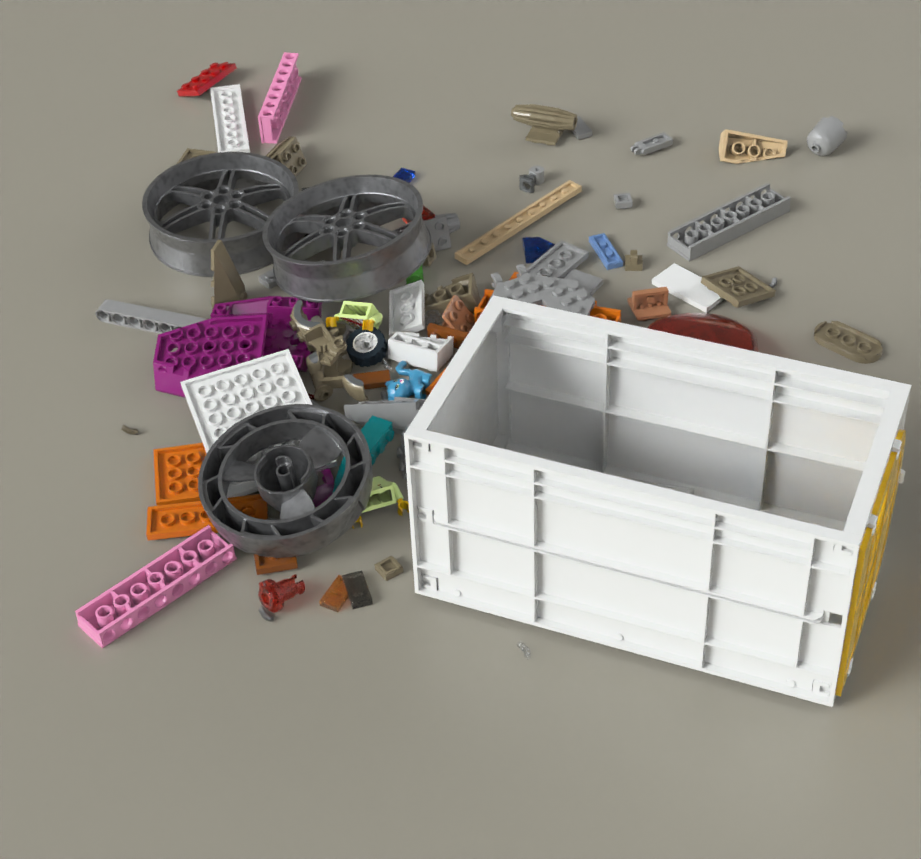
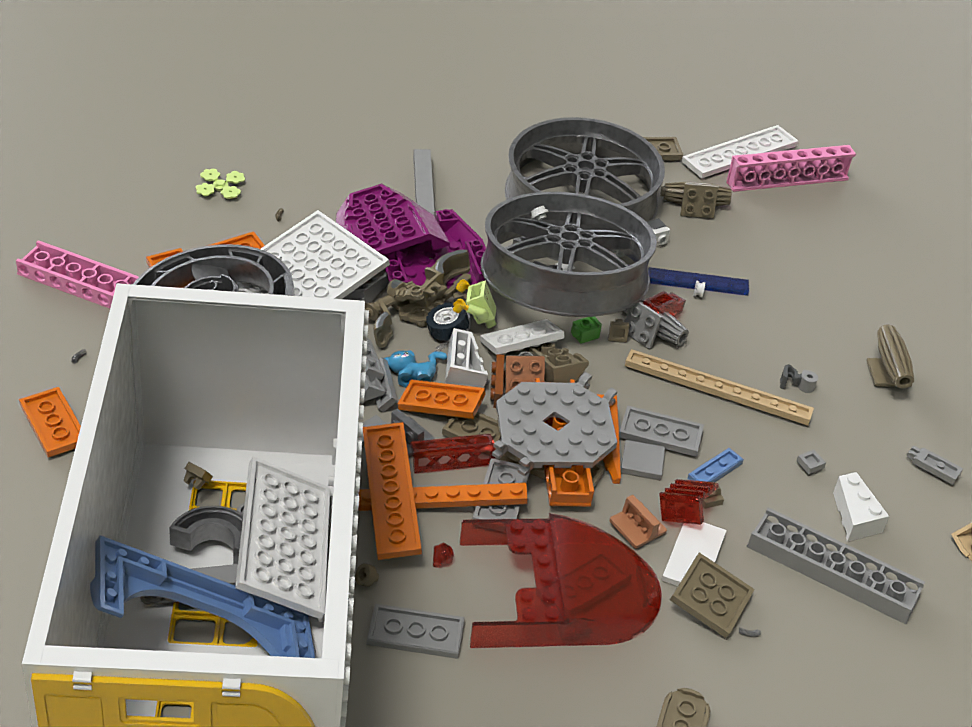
camera: 60 degrees right, 0 degrees up
(54, 463) = (220, 185): none -> yellowish green plant
(206, 79) = (795, 120): red plate -> none
(226, 279) = (478, 199): dark tan wedge -> none
(274, 594) = (90, 347): clear red piece -> none
(311, 227) = (539, 213): none -> white plate
(358, 643) = (52, 421): none -> orange plate
(374, 379) = (413, 341): dark orange tile -> none
(535, 247) = (682, 407): clear blue plate -> none
(582, 130) = (921, 397): light grey tile -> none
(644, 268) = (684, 501): none -> clear red plate
(679, 191) = (859, 508): none -> white wedge

